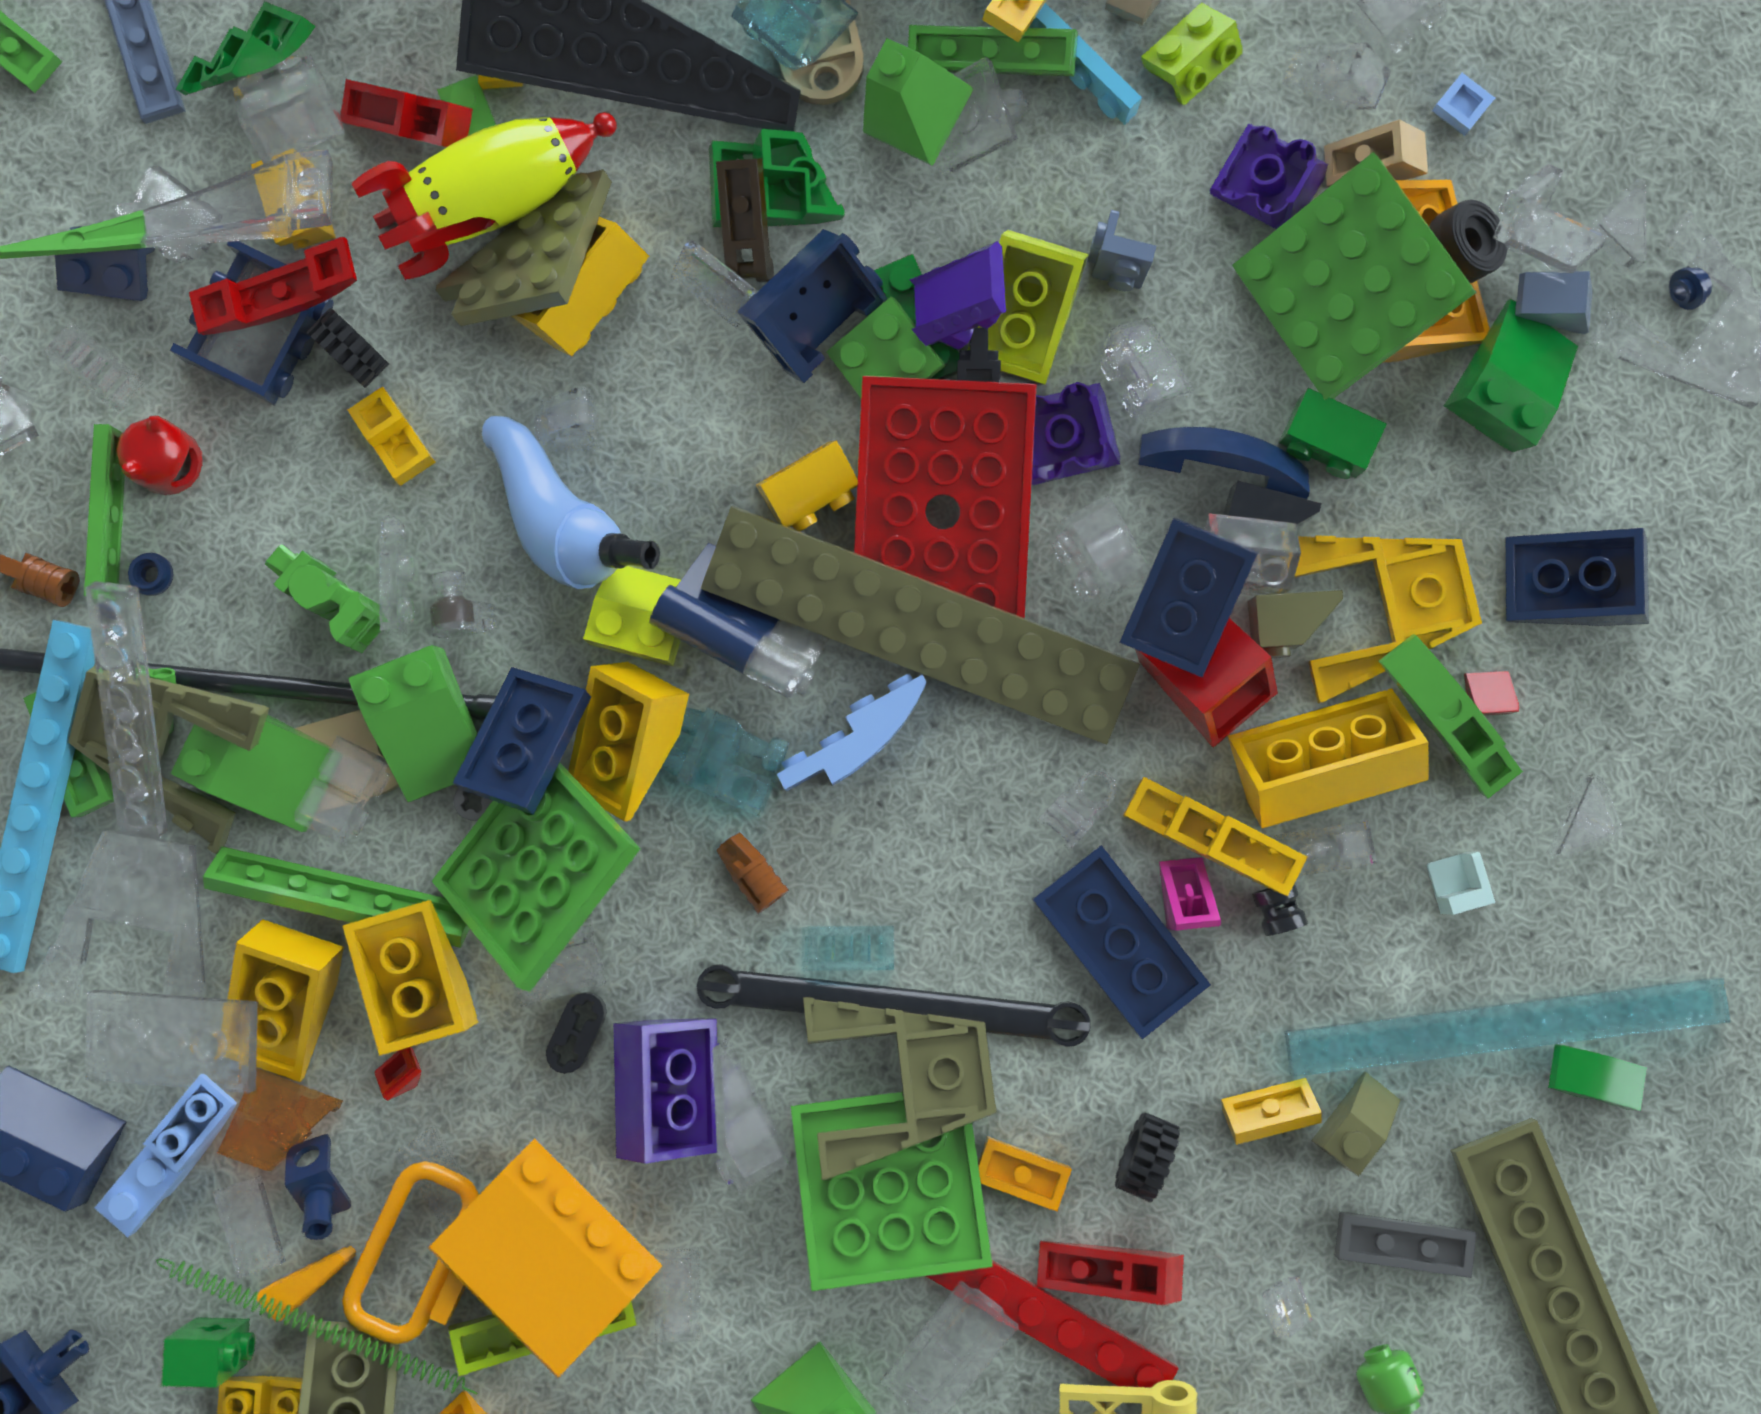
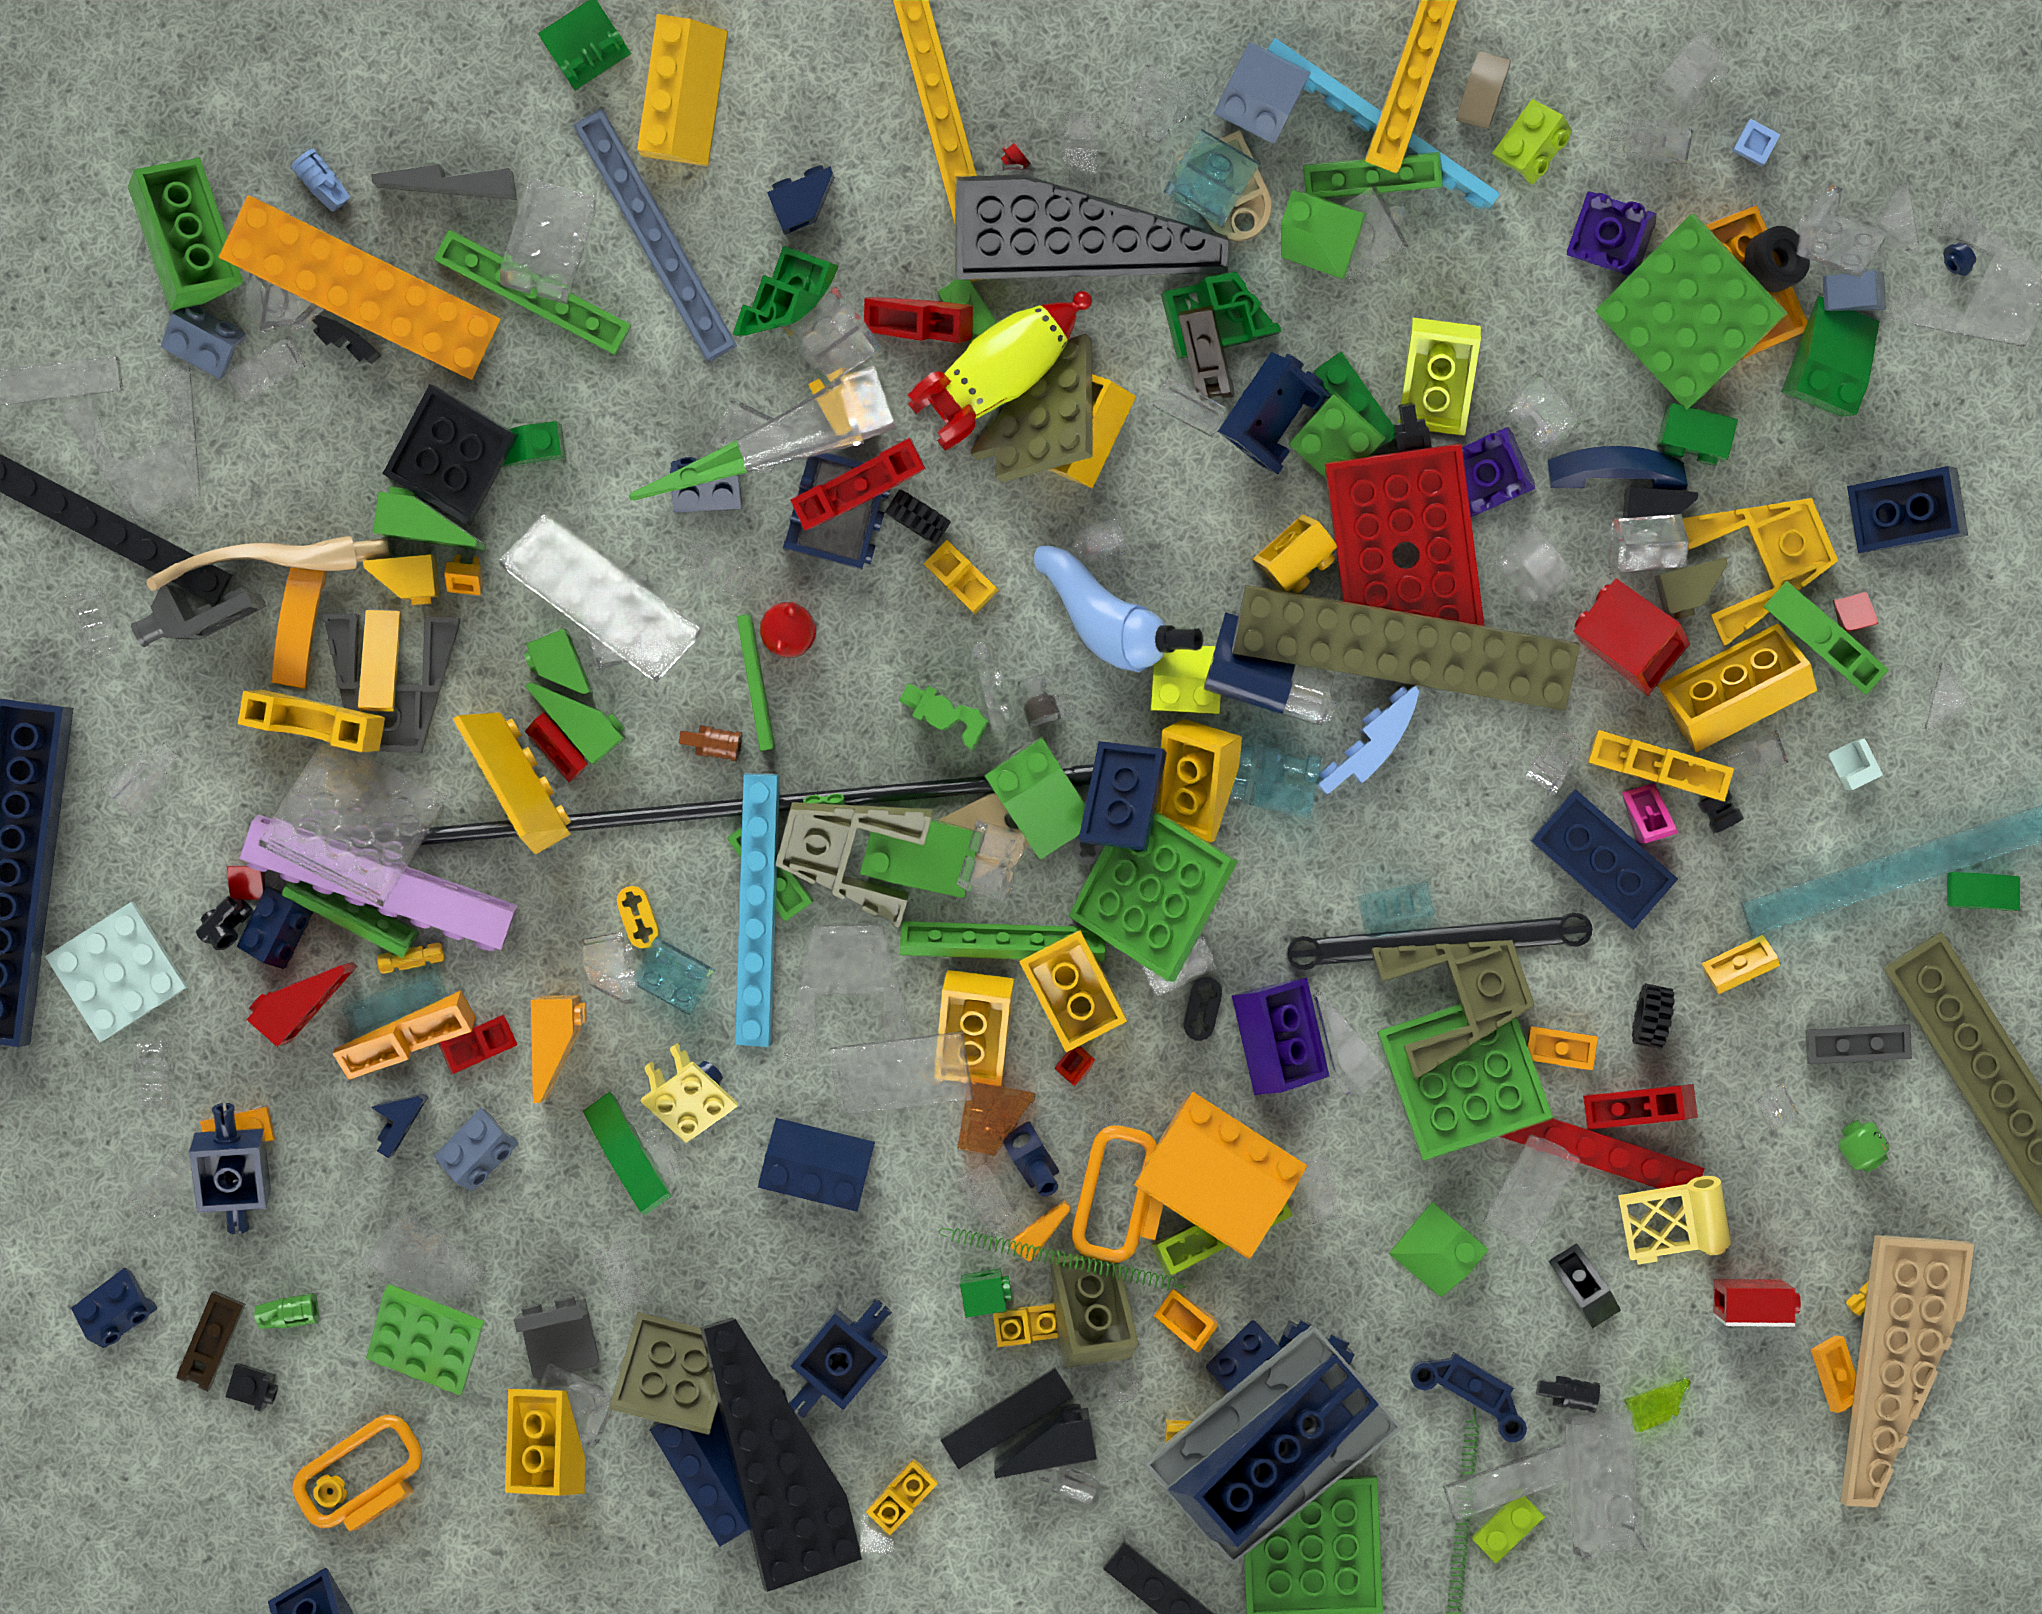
camera: 10 degrees left, 5 degrees up
(127, 708) = (827, 833): clear plate -> none
(139, 567) = (788, 717): dark blue plate -> none
(167, 1155) = (919, 1157): light blue slope -> none
(751, 872) = (1311, 861): dark orange hinge -> none
(960, 297) = (1388, 385): dark purple slope -> none
(1119, 259) = (1507, 331): sand blue bracket -> none
(1188, 597) = (1609, 591): dark blue plate -> none
(1359, 1124) = (1808, 961): olive slope -> none
(1395, 143) = (1702, 197): tan slope -> none

